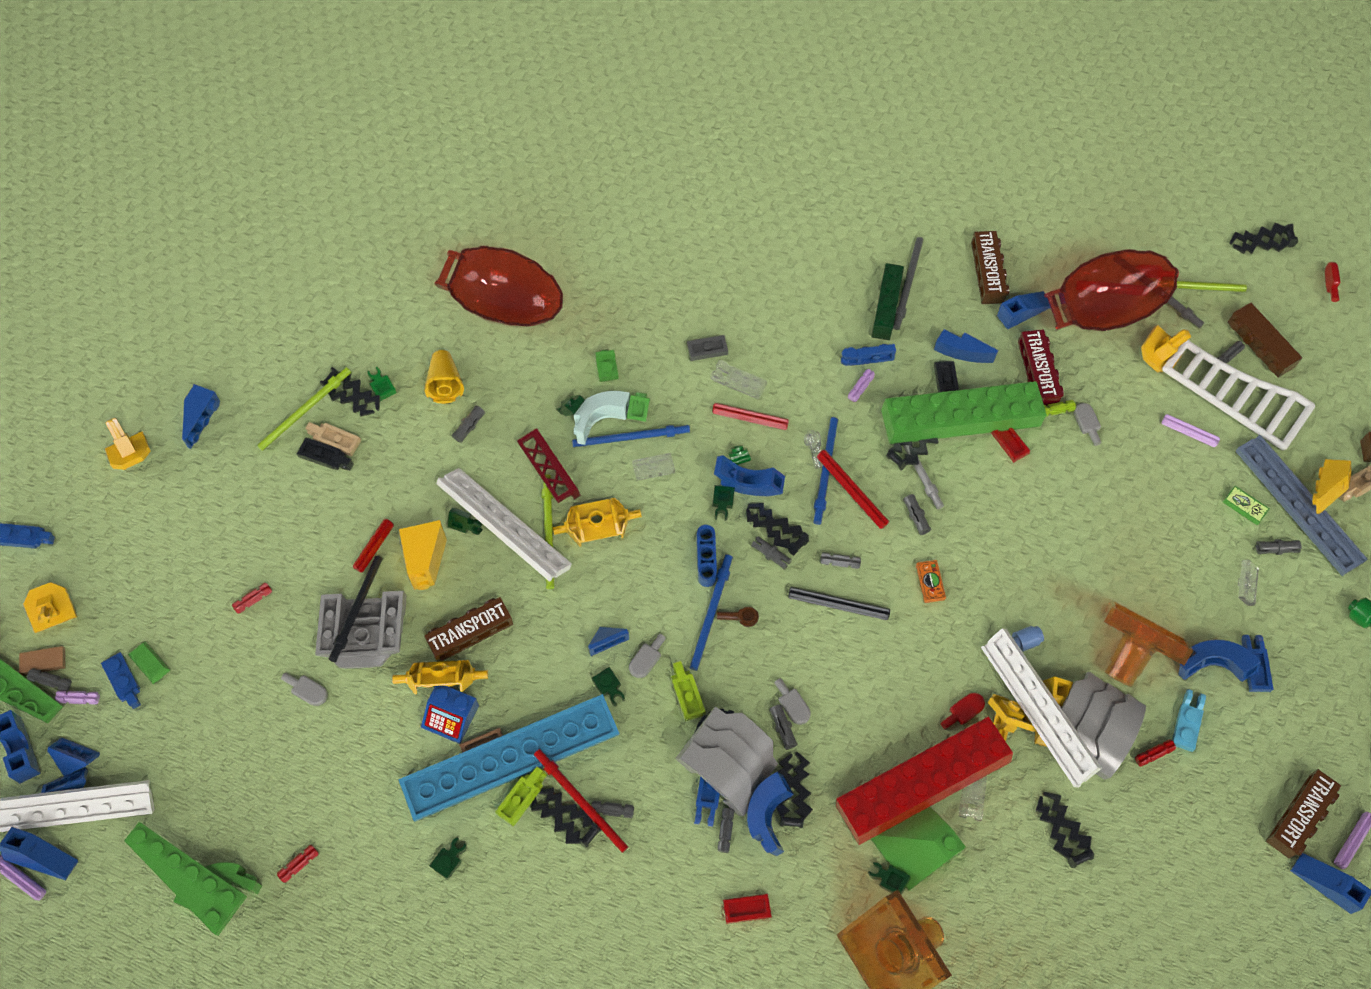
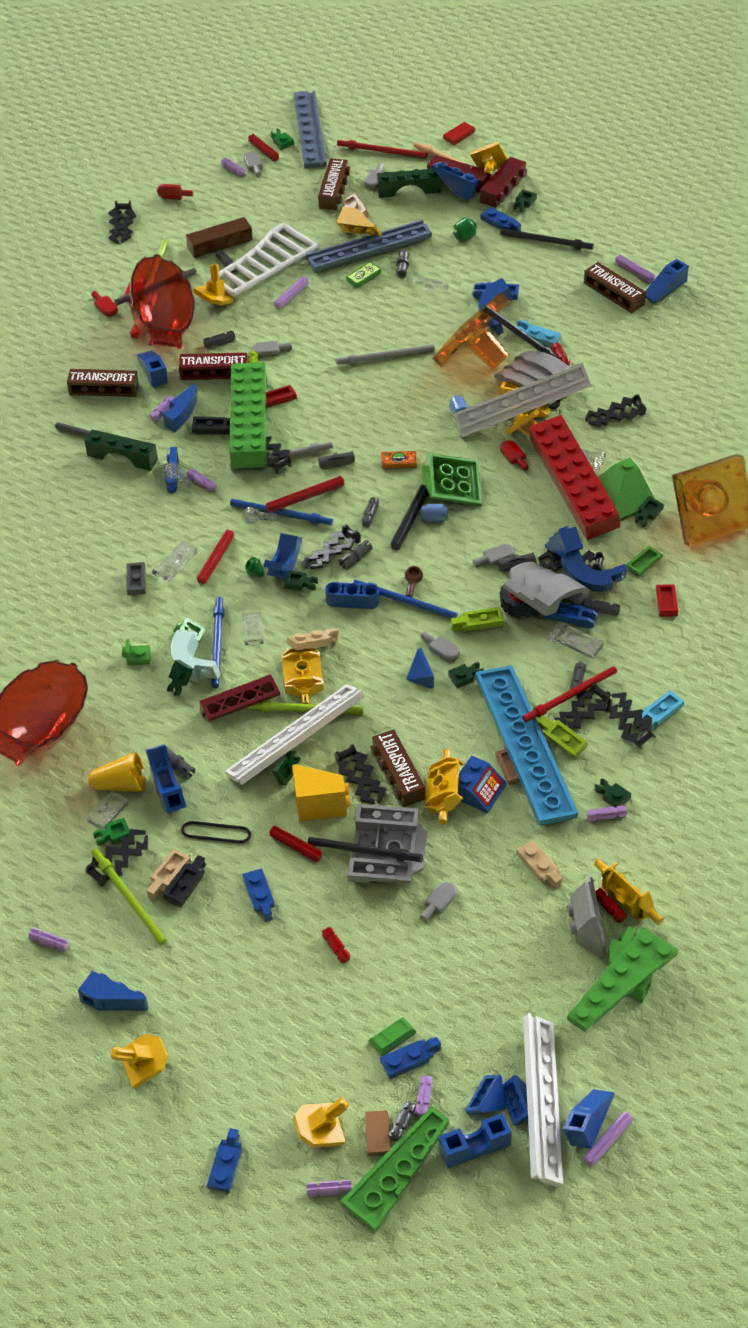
camera: 80 degrees left, 15 degrees down
(262, 355) = (48, 939): none -> lavender axle
(274, 839) = (586, 918): none -> light grey wedge
(296, 875) = (629, 896): none -> yellow plate
(313, 522) = (259, 893): none -> blue hinge
(351, 786) = (540, 864): none -> tan hinge
(381, 473) = (213, 838): none -> black piece
(407, 375) = (107, 810): none -> clear plate
(419, 853) = (606, 813): none -> lavender axle
(439, 419) = (164, 779): none -> blue arch
(455, 599) = (364, 781): none -> black piece
(558, 865) = (646, 724): none -> black piece
(568, 906) = (663, 708): none -> medium azure hinge
(633, 523) = (314, 639): none -> tan hinge
(667, 803) = (575, 639): none -> clear plate
(802, 774) = (565, 541): none -> blue slope
(807, 877) = (643, 560): none -> bright green tile
(846, 628) = (434, 512): none -> medium blue brick
(853, 350) = (173, 471): none -> clear plate
(898, 643) = (452, 478): none -> bright green slope
(961, 328) = (161, 409): none -> lavender axle
(1089, 511) = (353, 359): none -> light grey bar
(1090, 368) = (219, 339): none -> dark grey axle
(1121, 243) = (104, 304): none -> red piece
(1148, 727) = (542, 348): none -> black bar

